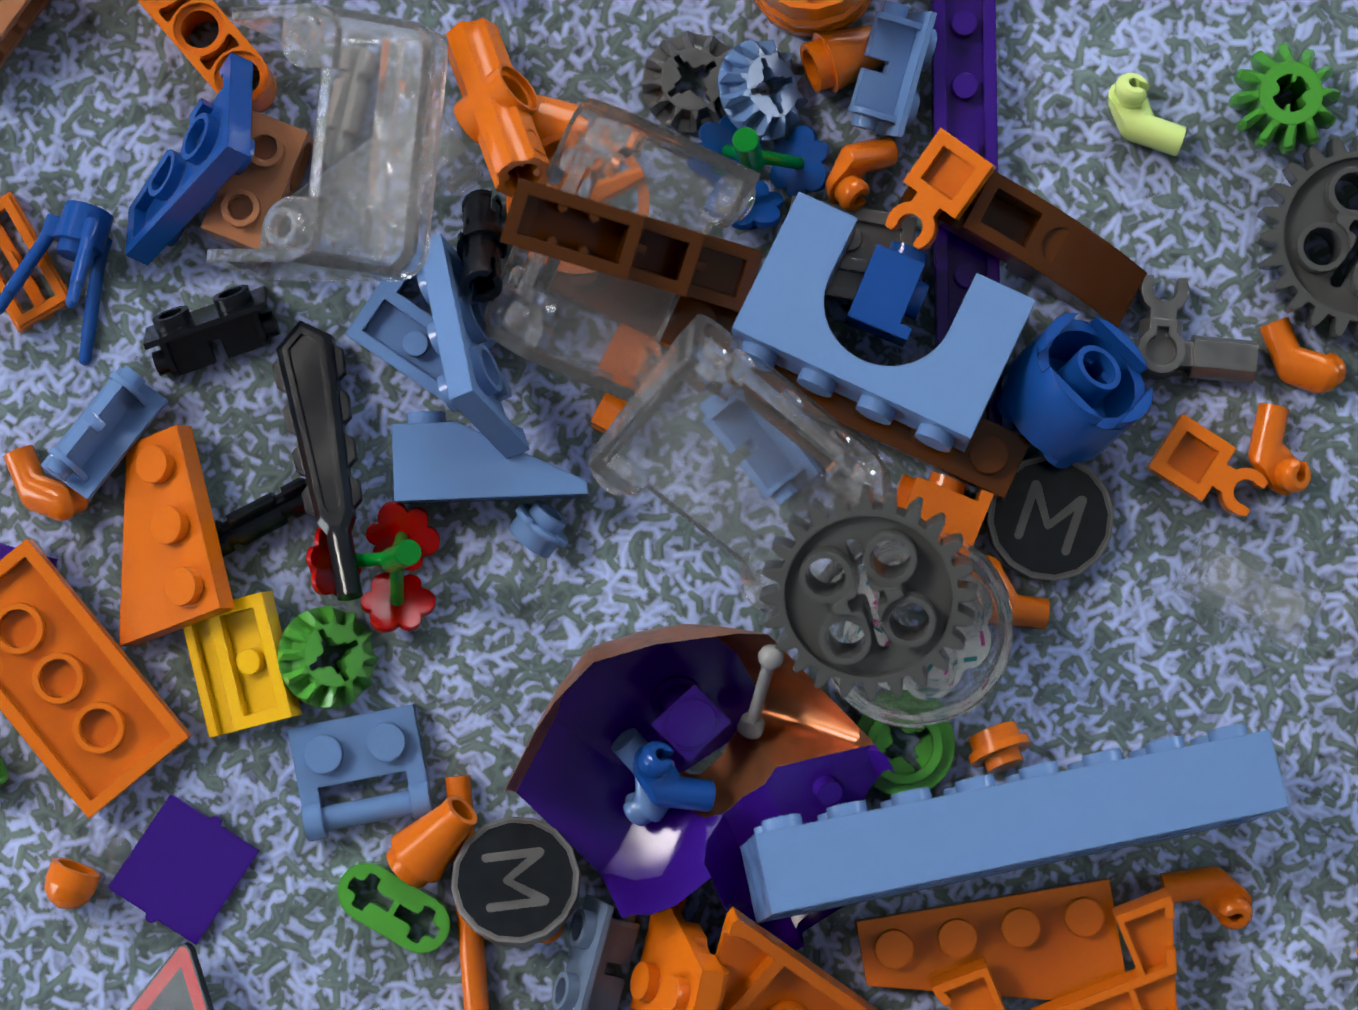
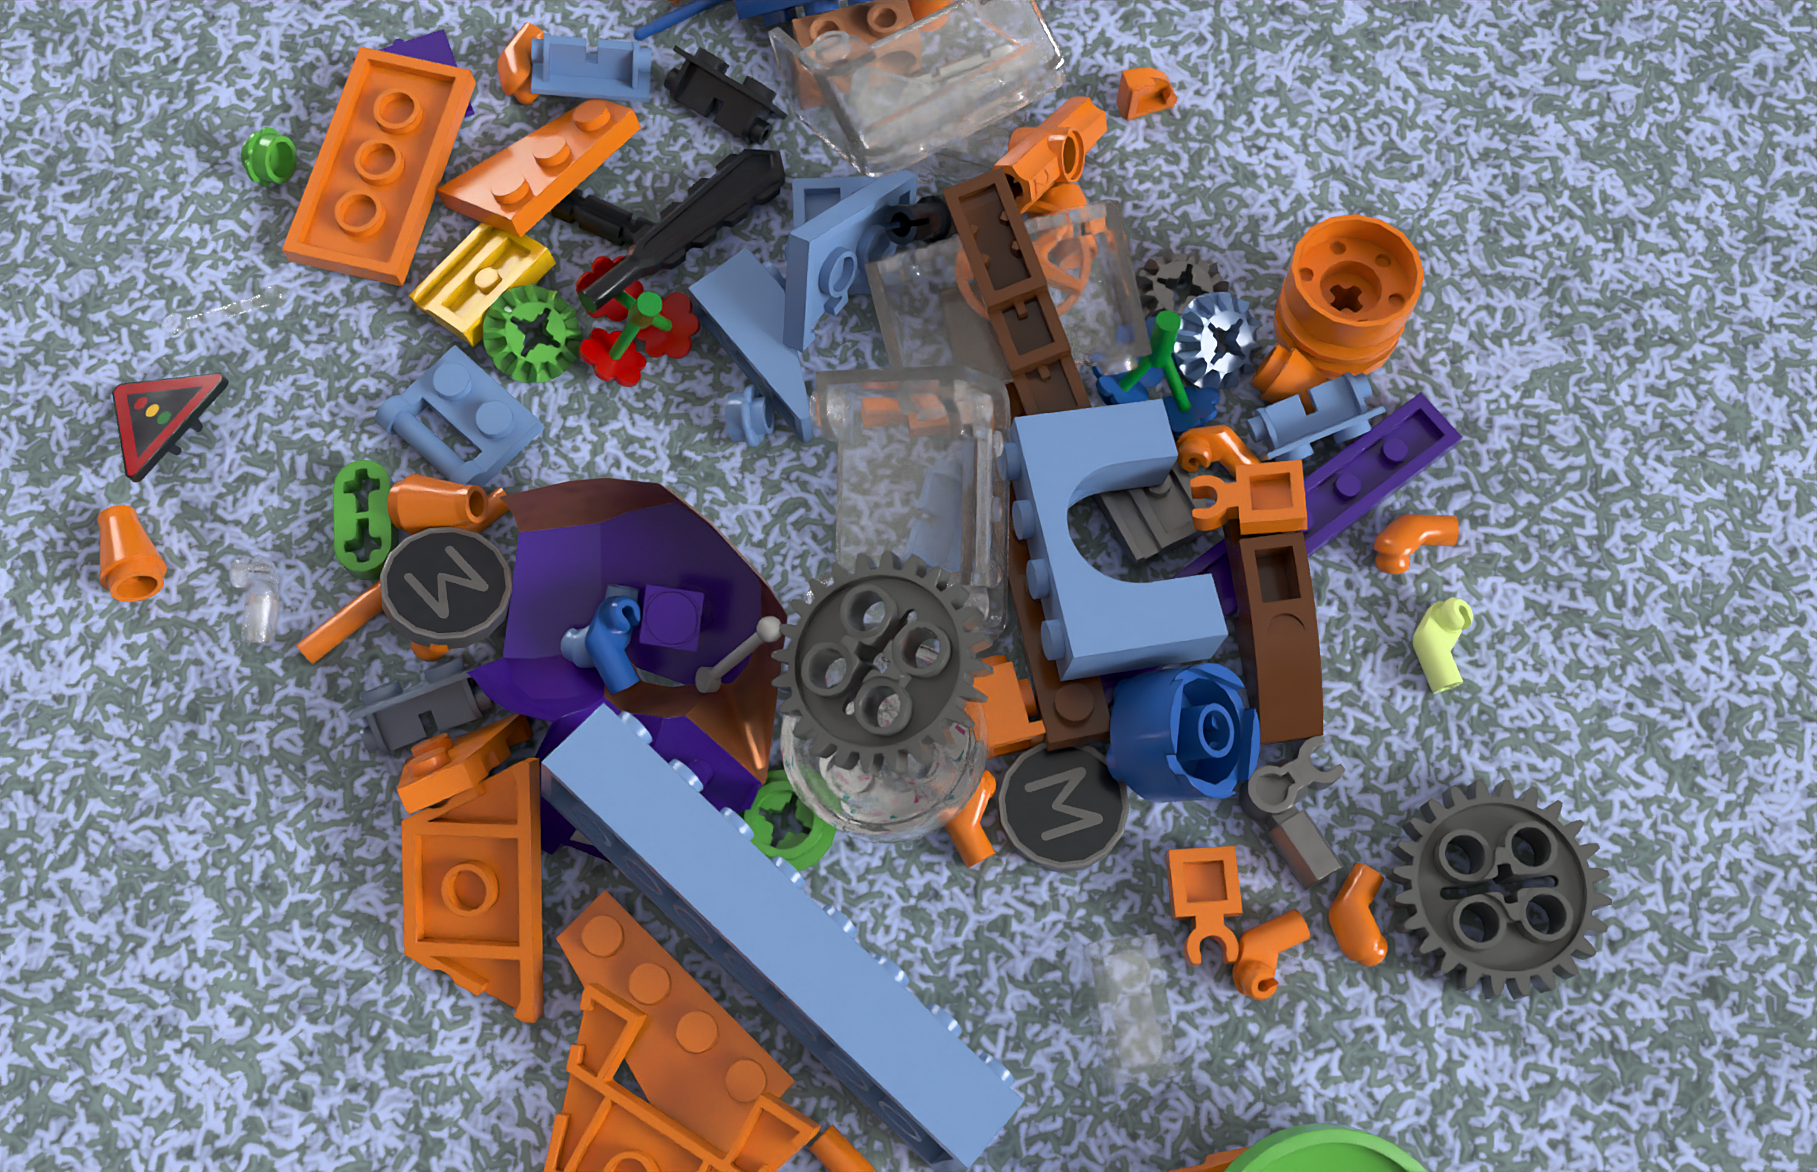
camera: 50 degrees right, 15 degrees down
(70, 883) = (223, 275): orange hinge -> none
(183, 868) = (290, 348): dark purple piece -> none
(889, 292) = (1139, 530): blue brick -> none
(998, 747) = (843, 893): orange plate -> none
(1037, 71) = (1407, 534): none -> orange arm
(1263, 85) = (1574, 729): bright green gear -> none

